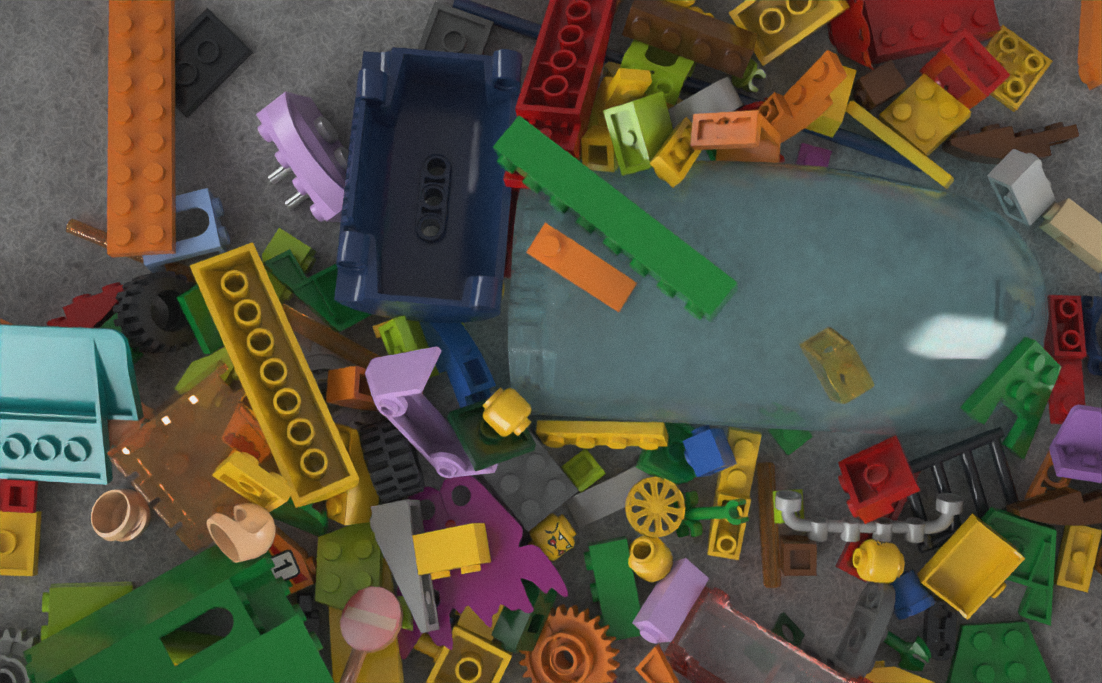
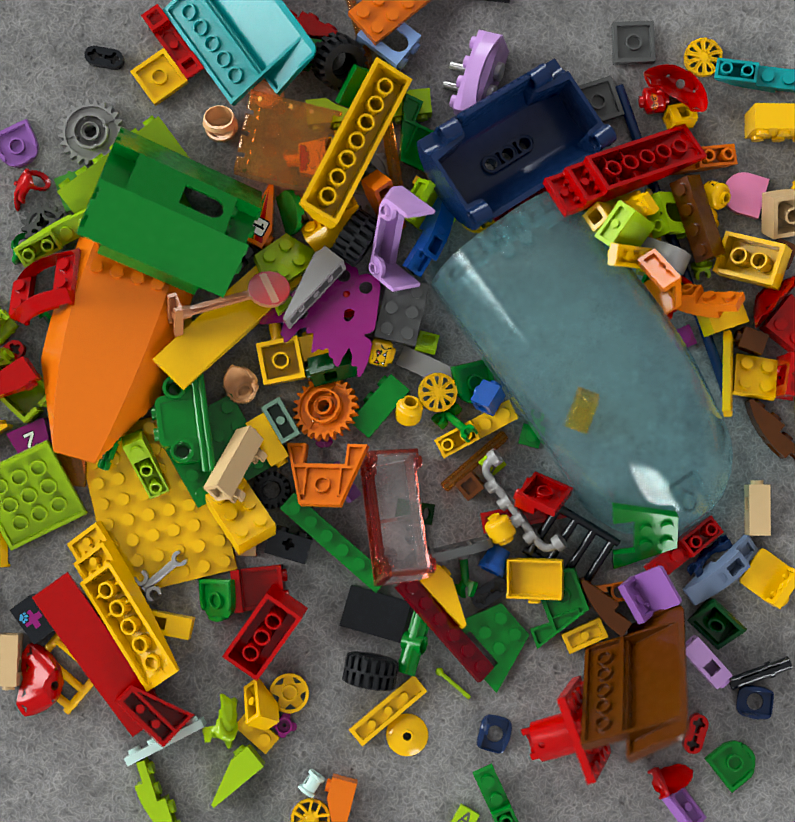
camera: 55 degrees right, 0 degrees up
(247, 535) = (269, 190): light nougat helmet -> none
(252, 482) = (295, 172): yellow plate -> none
(452, 549) = (335, 302): yellow brick -> none
(482, 442) = (411, 275): dark green tile -> none
(507, 412) = (428, 273): yellow head -> none
(581, 267) = (531, 248): orange slope -> none
(610, 433) = (453, 334): yellow plate -> none
(615, 219) = (568, 246): green brick -> none
(670, 602) = (395, 437): lavender brick -> none
(1022, 186) = (756, 455): light grey brick -> none

